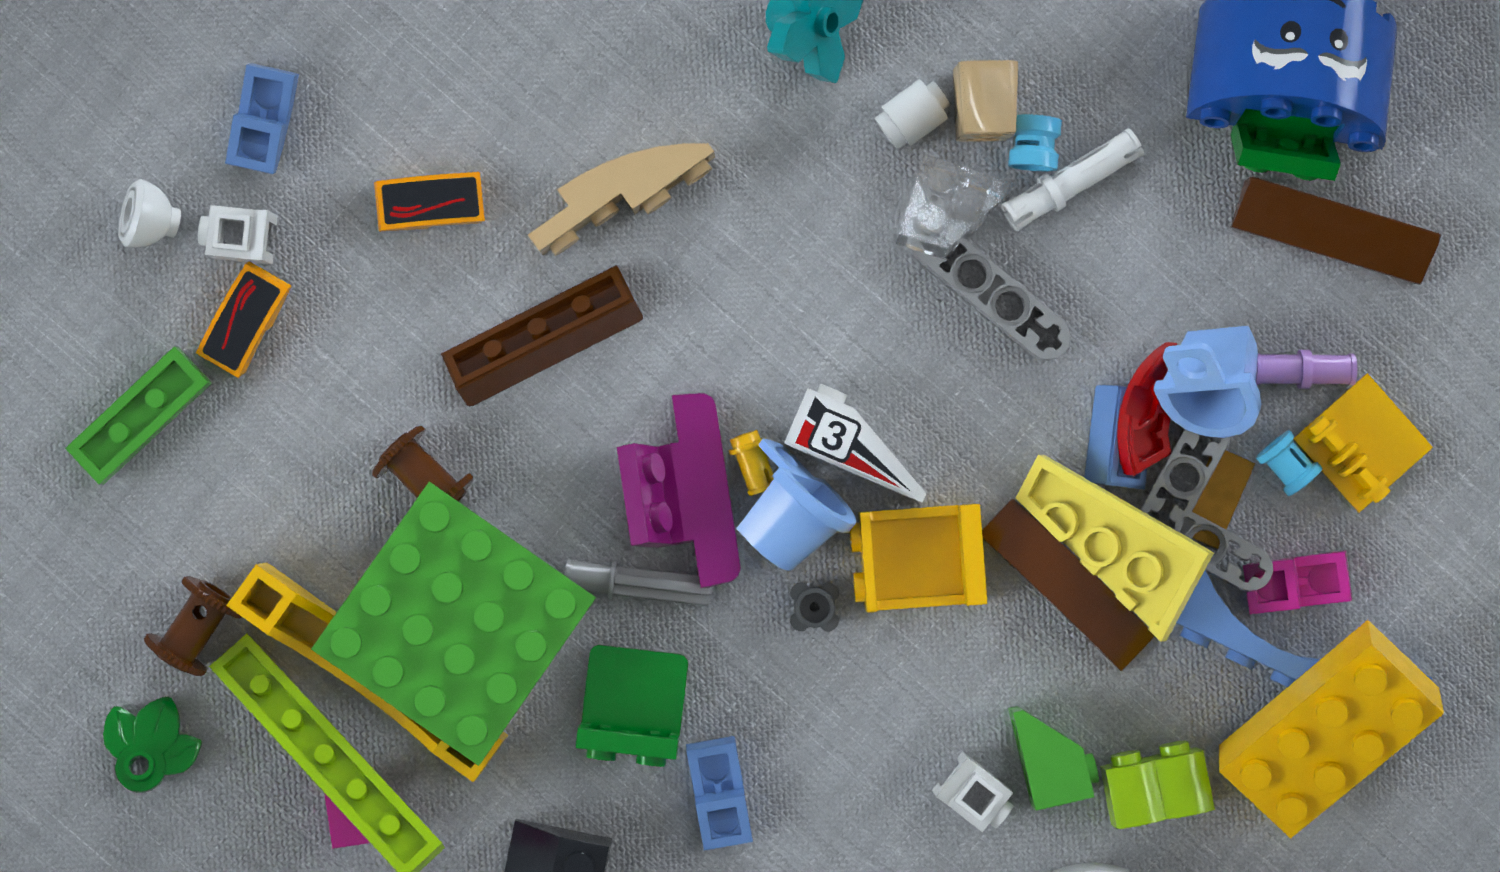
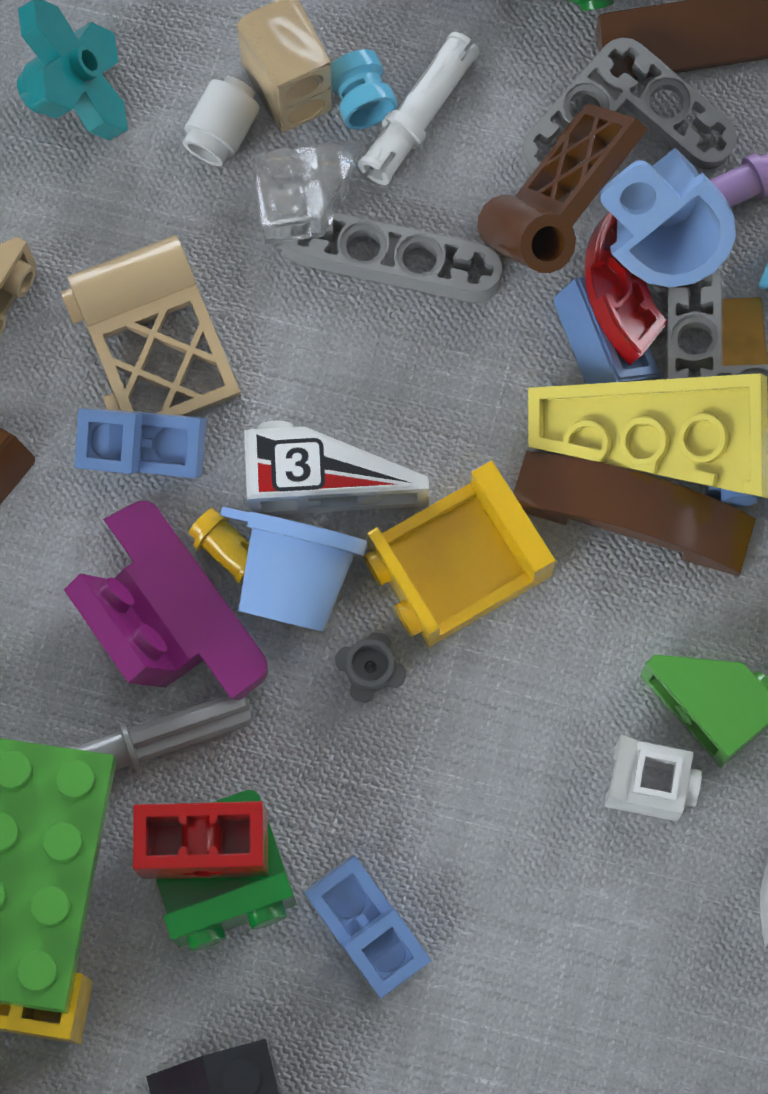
camera: 25 degrees left, 15 degrees down
(629, 686) = (200, 840): none -> red brick
(728, 349) = (140, 442): none -> medium blue slope
(774, 225) = (135, 291): none -> tan piece
(1107, 330) = (539, 219): none -> reddish brown piece
(1229, 248) = (617, 92): none -> light grey beam

